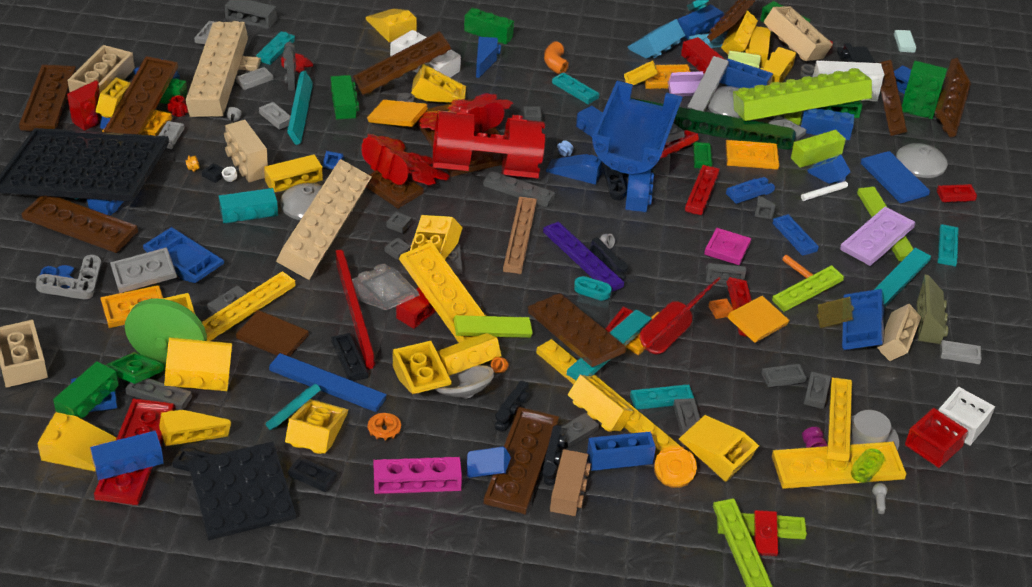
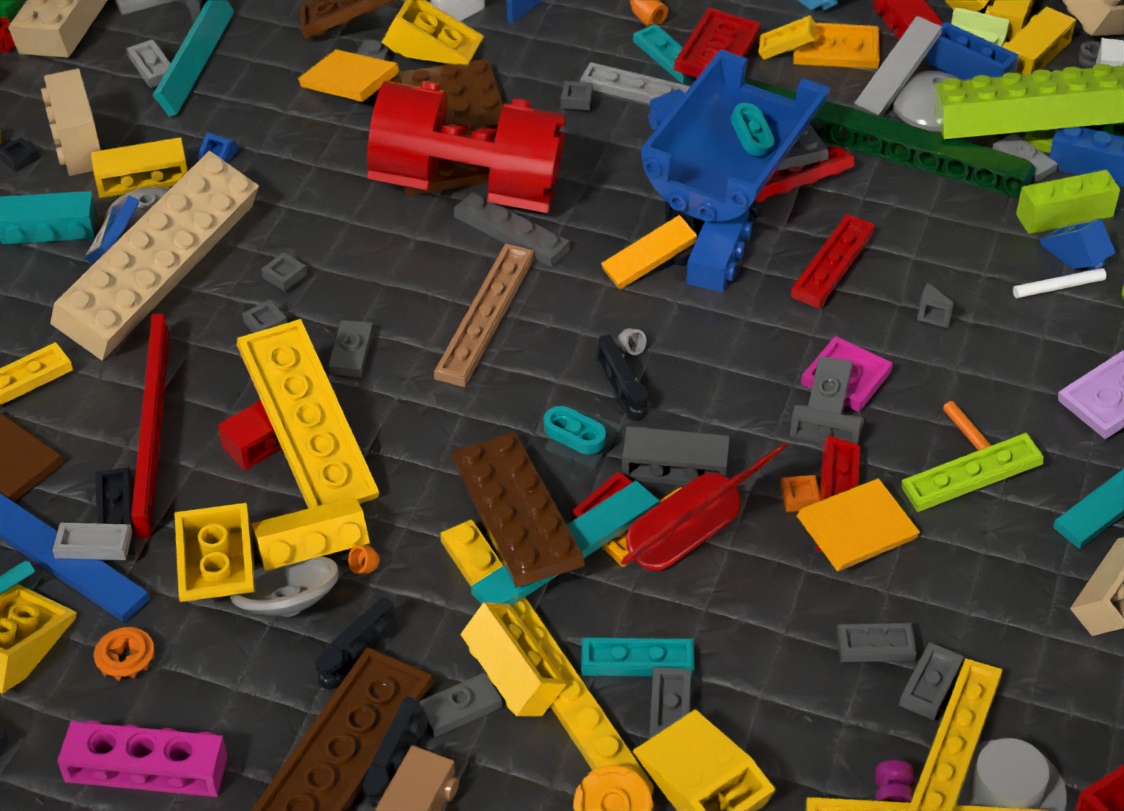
camera: 15 degrees right, 5 degrees up
(229, 170) = (35, 154): white hinge -> none
(234, 113) = (85, 55): light grey hinge -> none
(294, 207) = (112, 228): none -> blue tile
(344, 97) = (271, 40): green brick -> none
(345, 371) = (92, 541): none -> light grey tile
(383, 287) = (206, 391): clear slope -> none
(394, 163) = (336, 162): red plant -> none
(394, 194) = (300, 204): reddish brown tile -> none
(440, 230) = (332, 307): yellow slope -> none
(486, 110) = (481, 88): red plant -> none
(487, 462) = (272, 751): slope -> none
(492, 325) = (372, 484): lime tile -> none
(558, 106) = (627, 83): none -> light grey tile
(565, 148) = (613, 162): light blue plate -> none
(578, 167) = (624, 199): blue slope -> none
(582, 255) = (581, 366): dark purple tile -> none
(602, 80) = (715, 32): none -> red plate
(602, 193) = (649, 252): none -> light orange tile
(621, 450) = (518, 761): blue brick -> none
(643, 123) = (752, 129): none -> teal plate
(649, 295) = (672, 455): none -> dark grey brick
(684, 83) = (858, 60): lavender panel -> none
(702, 154) = (854, 194): green tile -> none
(723, 250) = (831, 384): none -> dark grey plate
(750, 189) = (920, 268): blue hinge -> none
(752, 154) = (945, 201): light orange tile -> none
(795, 235) = (981, 363): blue tile -> none
(835, 312) = (1010, 526): clear yellow piece -> none
(867, 322) = (1057, 549): blue slope -> none

